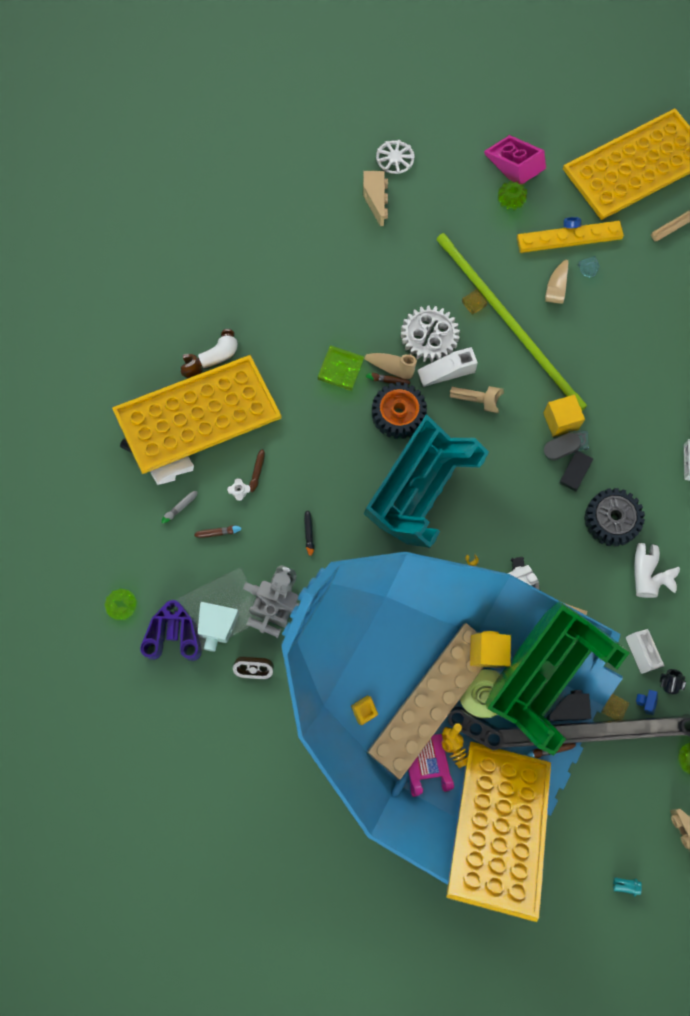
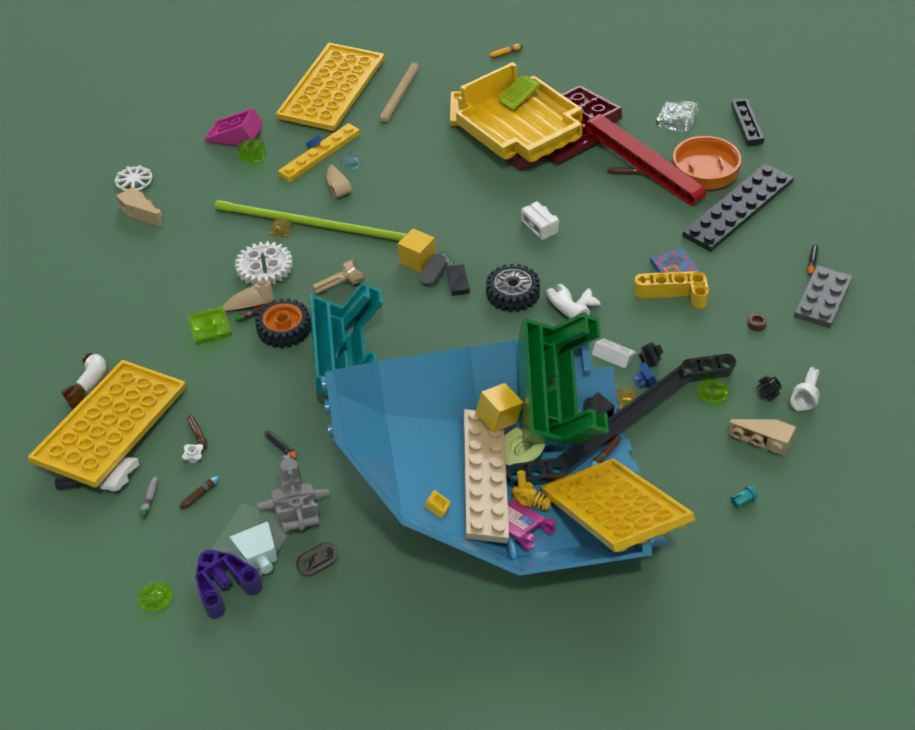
camera: 35 degrees left, 25 degrees down
(449, 367) = (300, 272): white slope -> none

